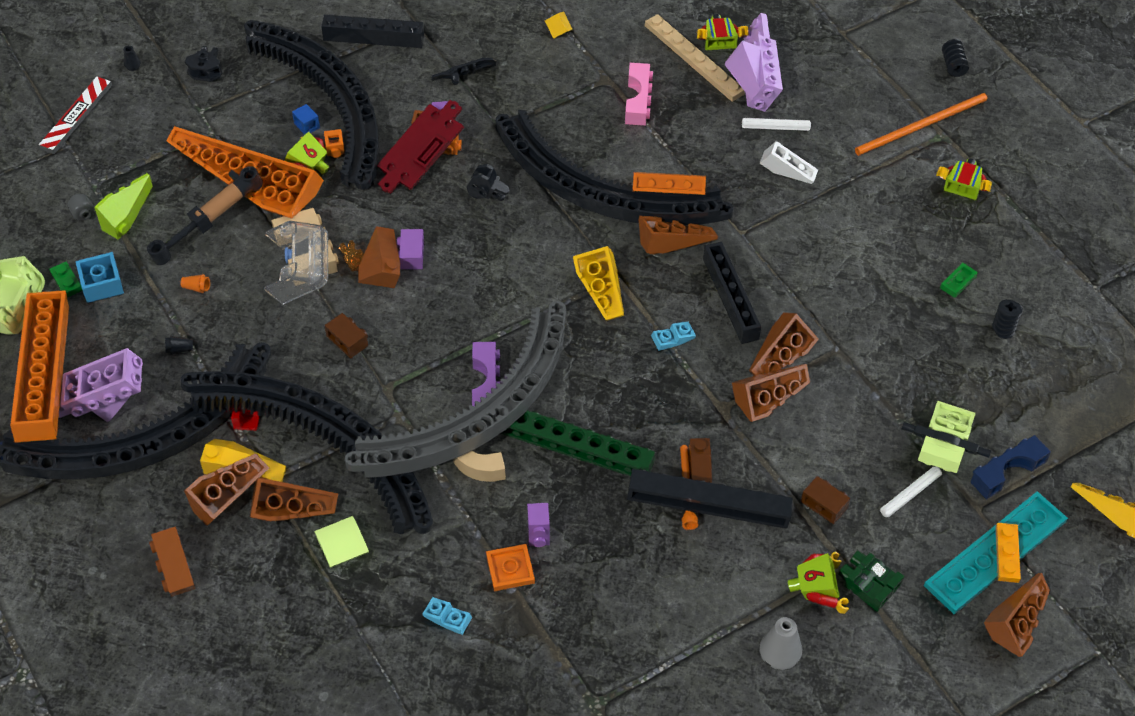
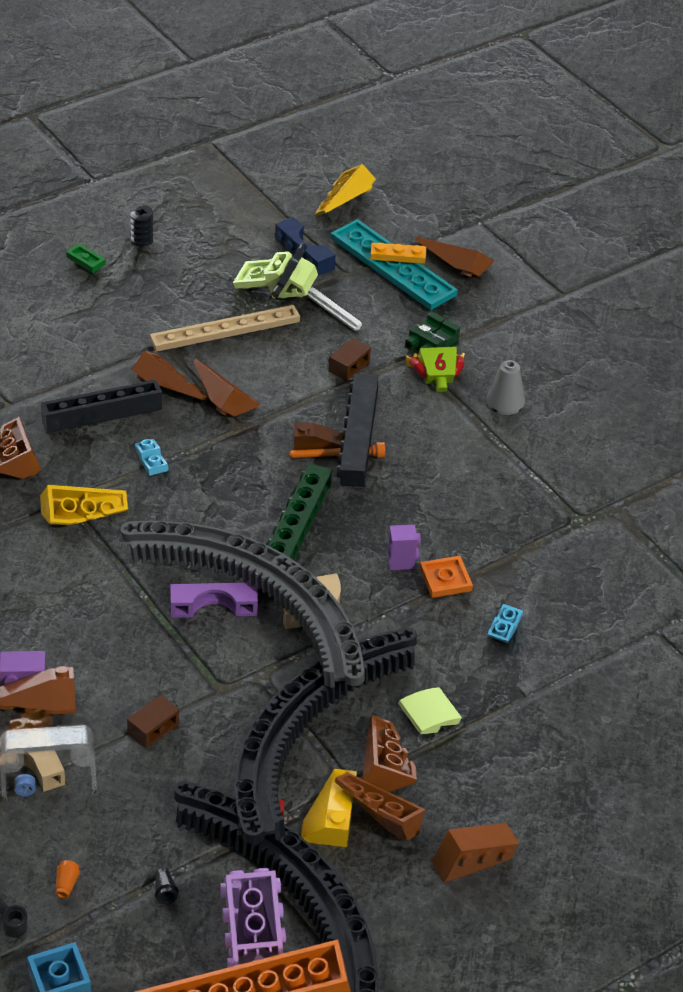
camera: 95 degrees left, 10 degrees down
(866, 396) = (224, 328): none -> tan plate

